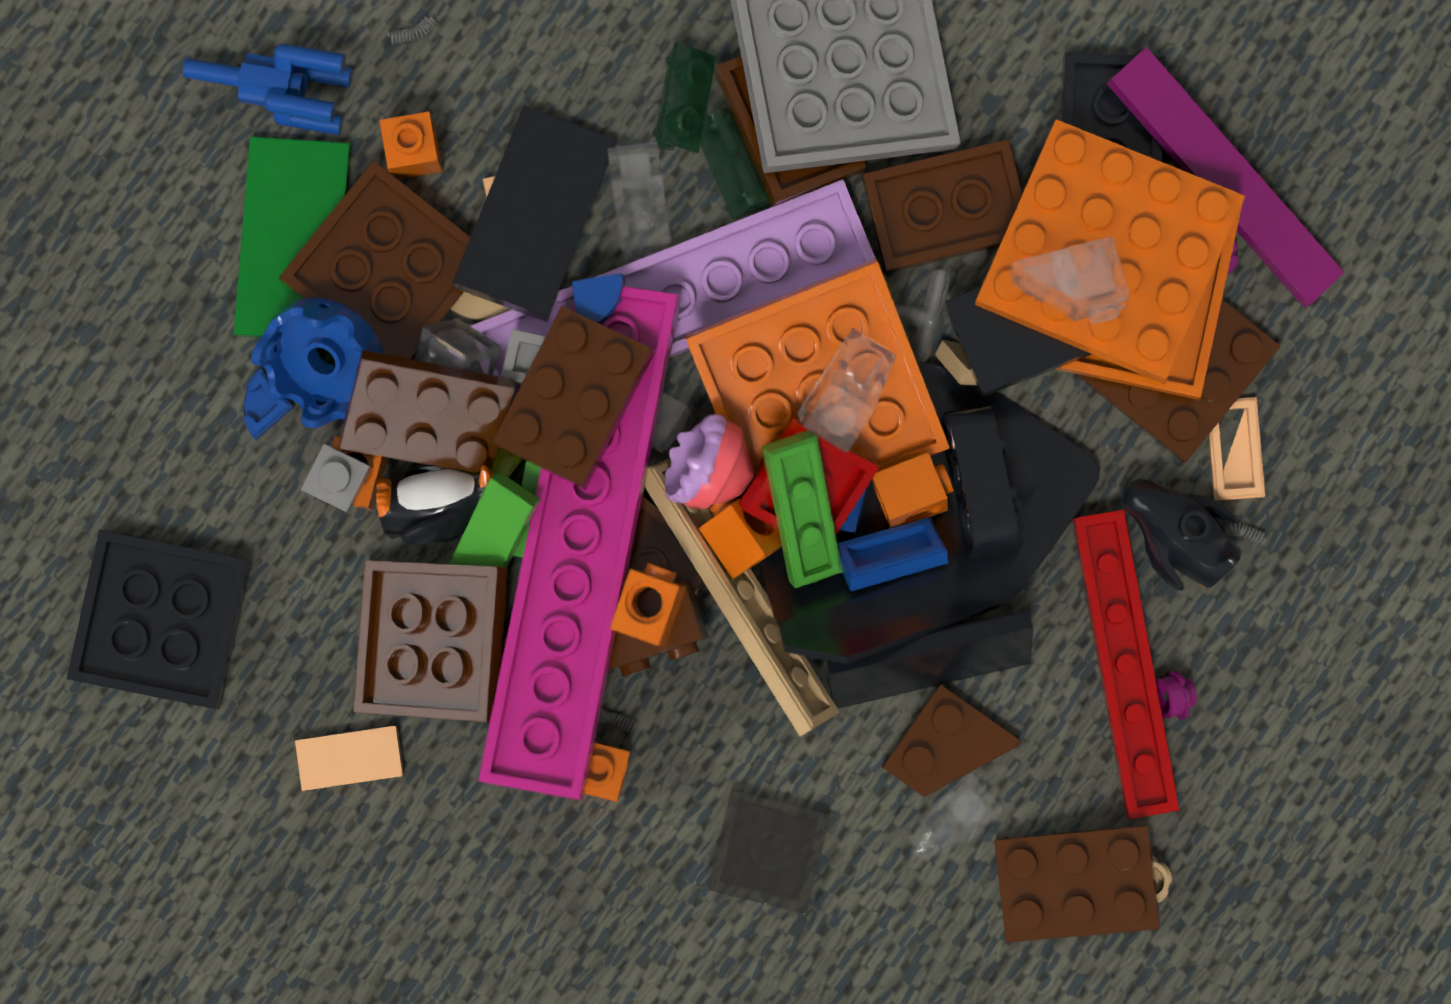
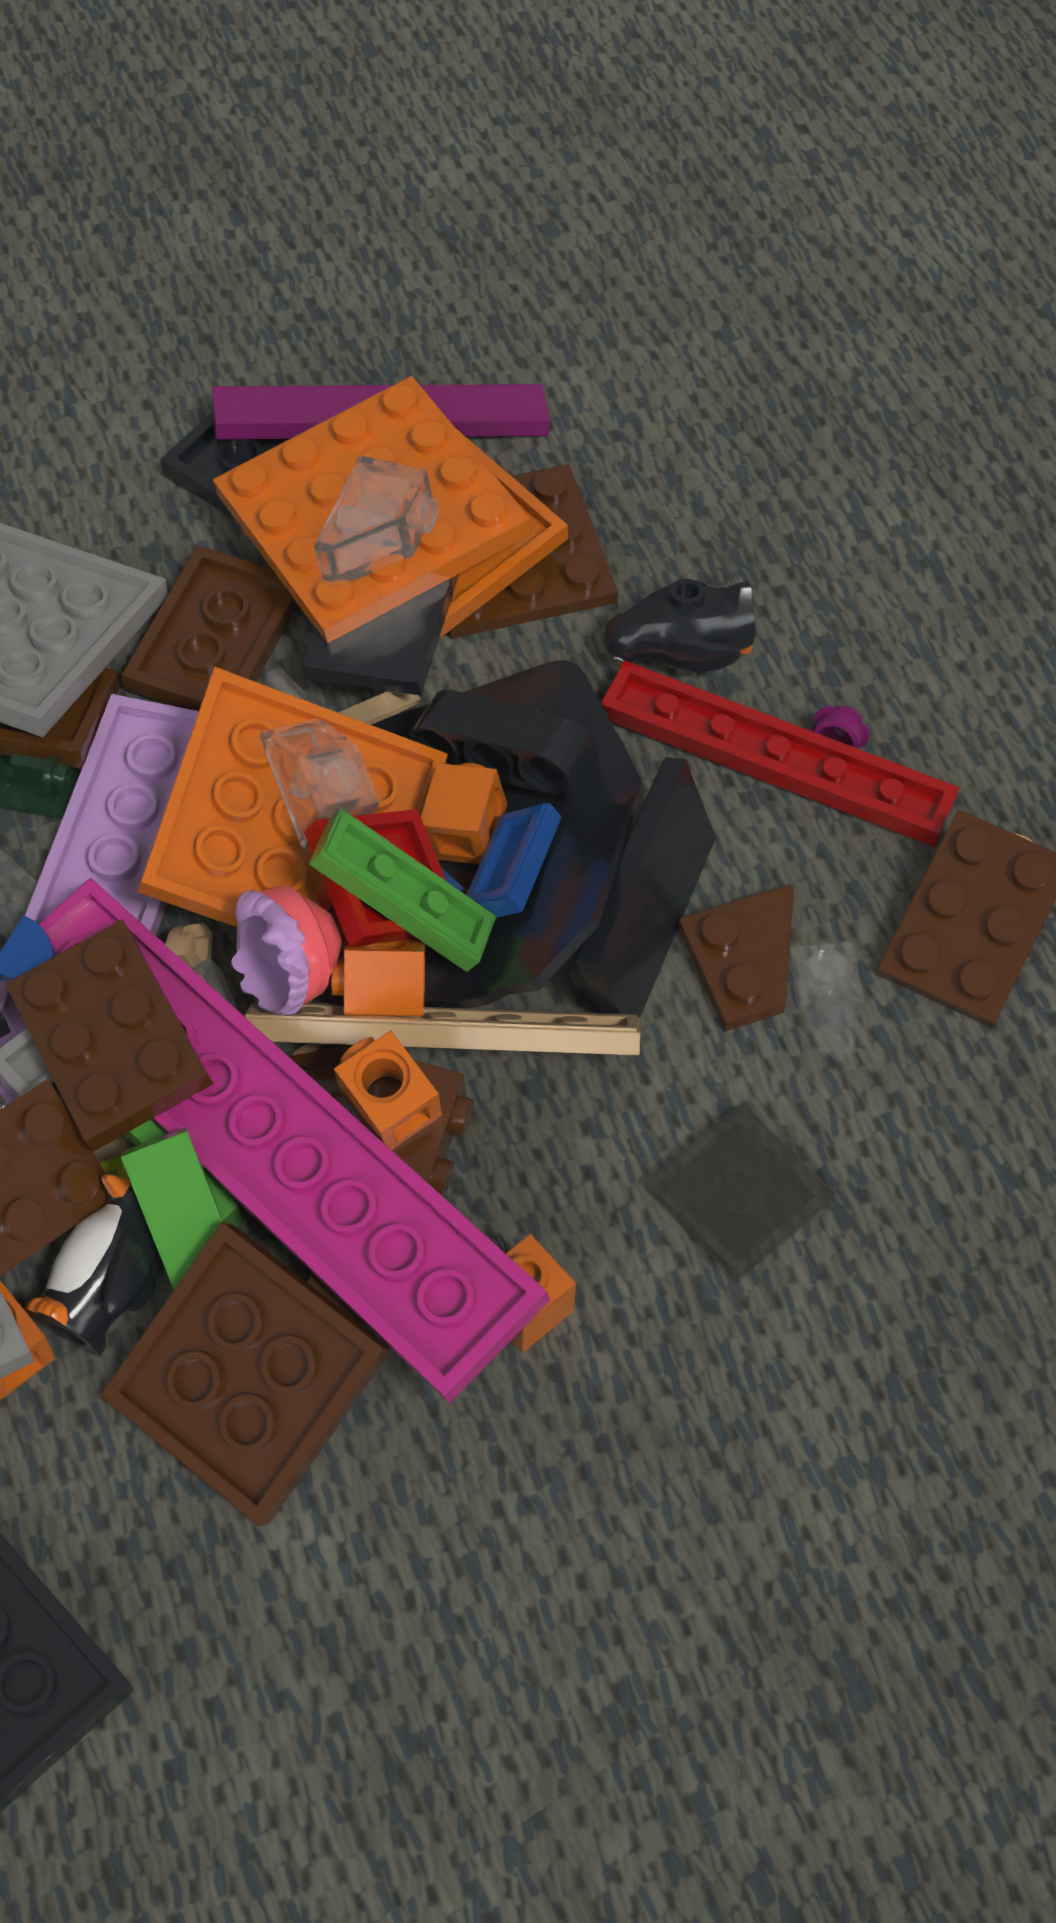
camera: 55 degrees left, 25 degrees down
(349, 758) = (307, 1573): light nougat tile -> none
(685, 384) = (191, 943): none -> tan tile
(1244, 467) = (657, 558): light nougat tile -> none

